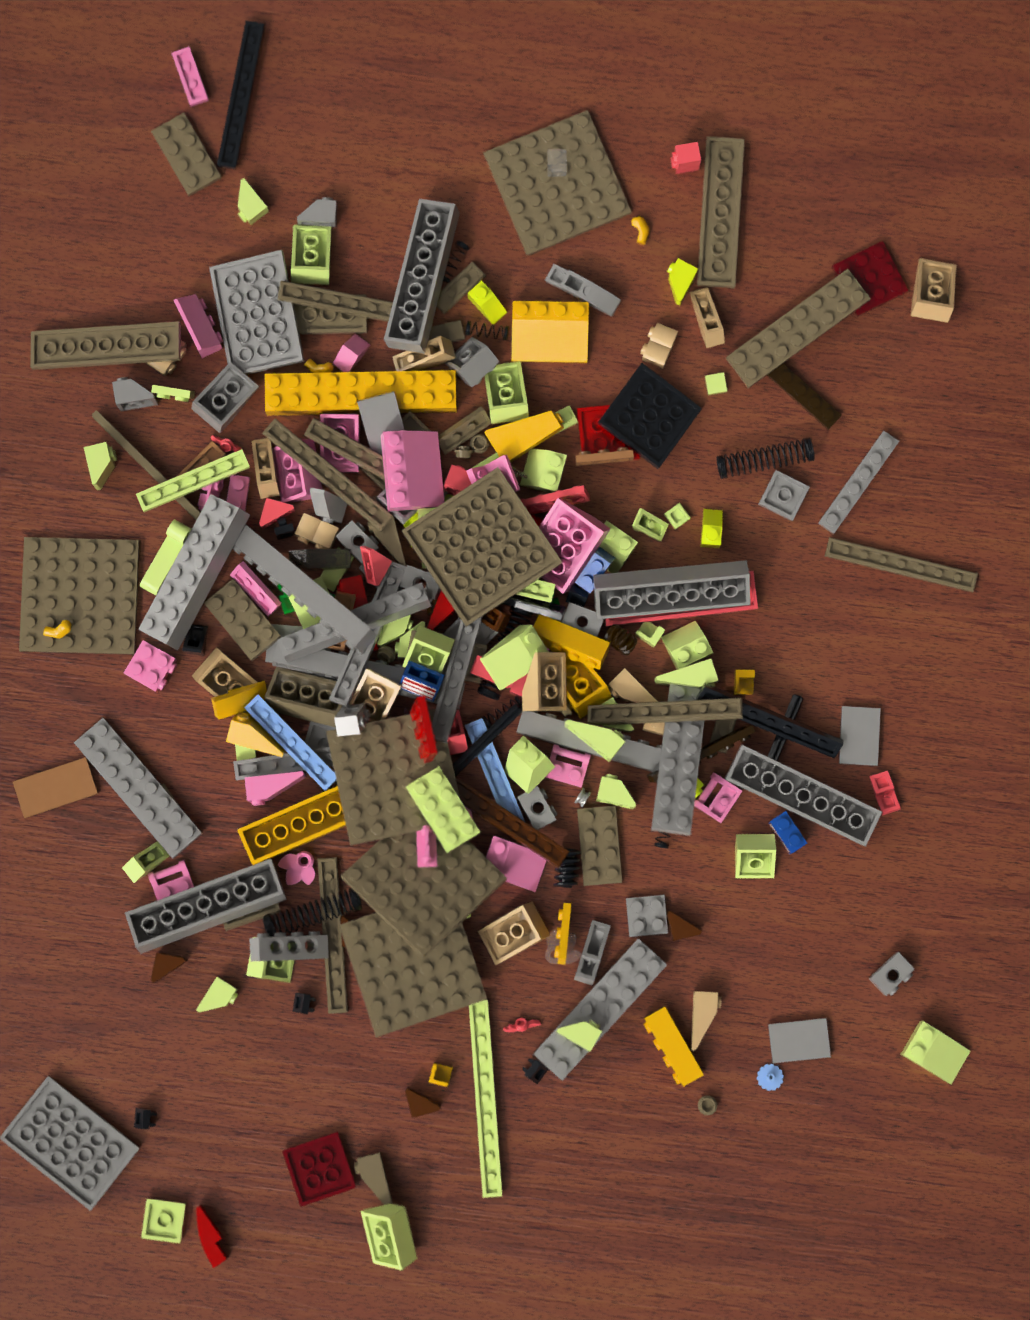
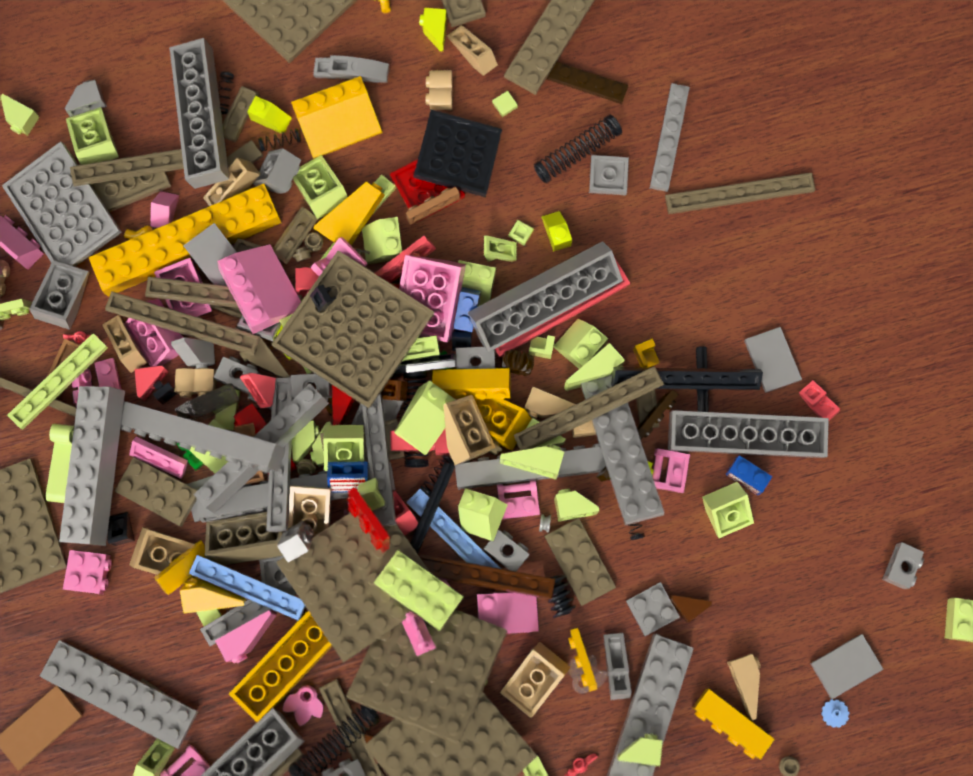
camera: 20 degrees left, 5 degrees down
(435, 706) = (371, 494): none -> yellowish green panel
(464, 507) = (322, 298): none -> black tile

